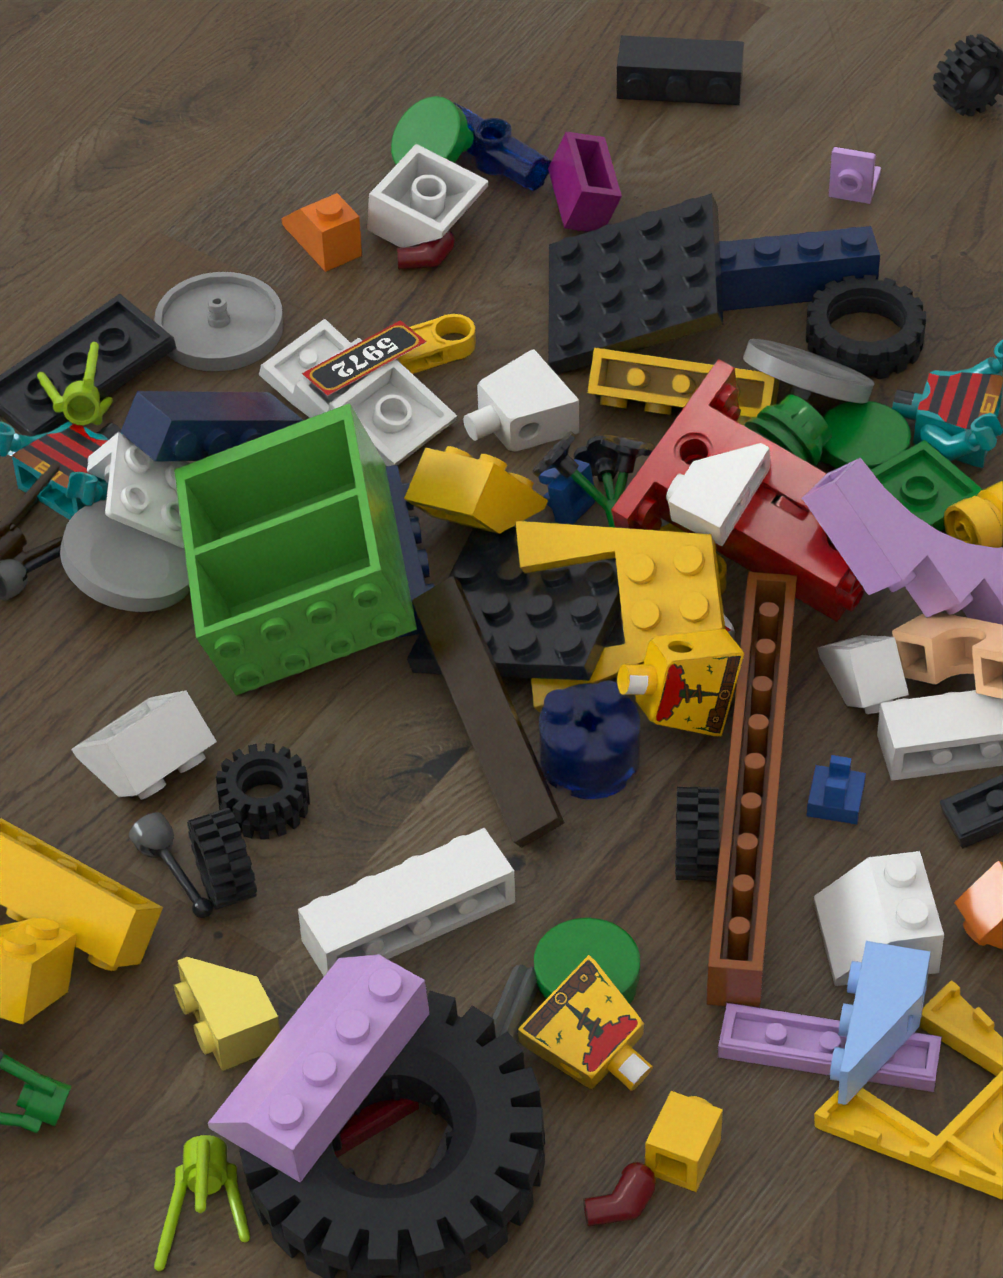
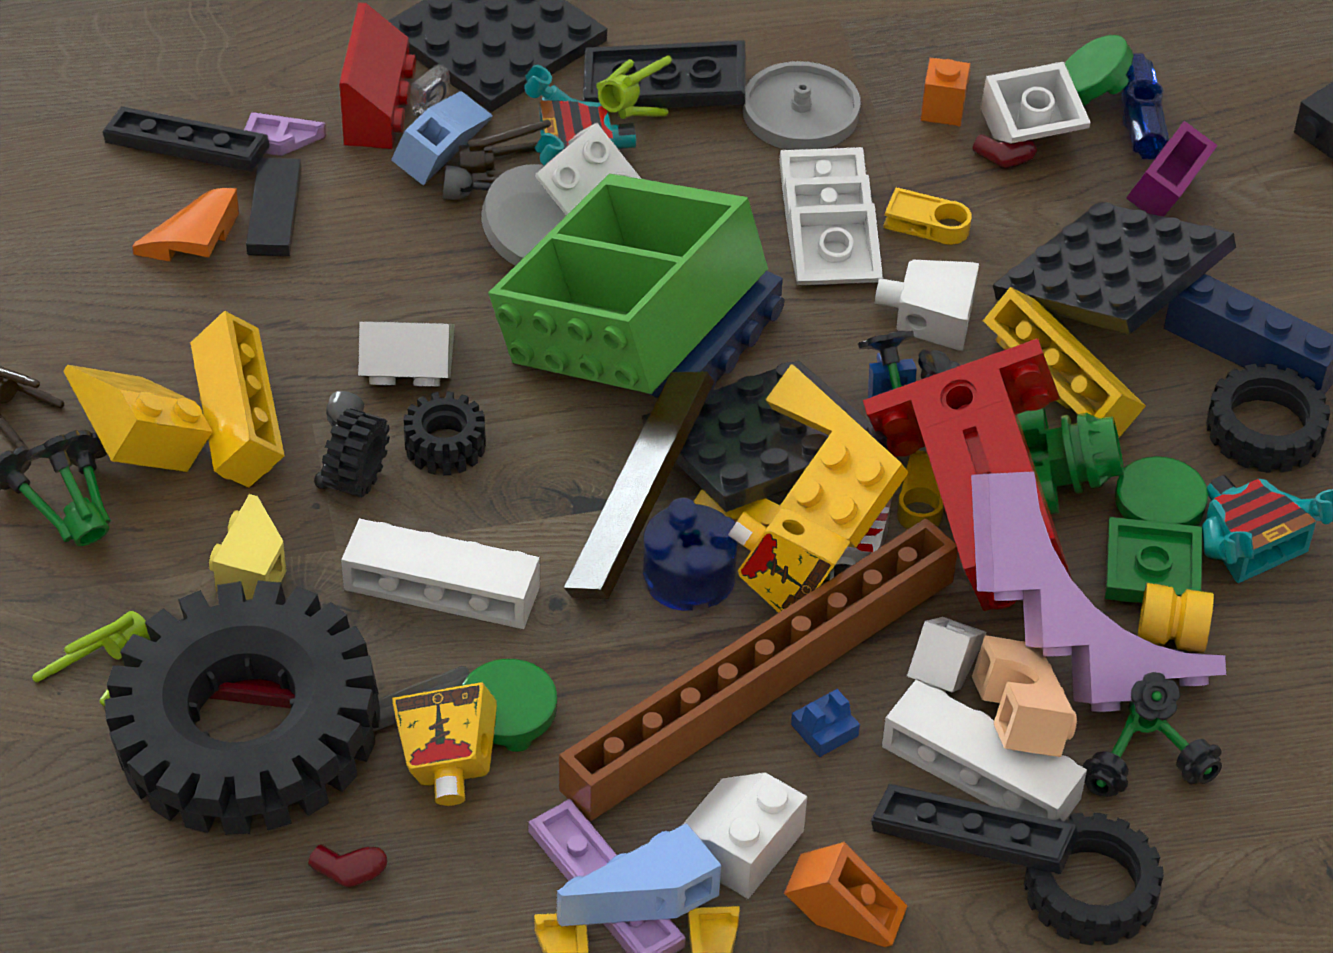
camera: 40 degrees right, 0 degrees up
(201, 423) = (667, 154): dark blue brick -> none
(324, 1063) = (231, 621): lavender slope -> none
(364, 358) = (853, 190): sticker -> none
(472, 490) = (808, 331): yellow slope -> none
(684, 1140) = (427, 860): yellow brick -> none
(697, 833) = (671, 658): black tyre -> none
(718, 490) = (938, 435): white slope -> none
(808, 371) = (1163, 414): light grey piece -> none

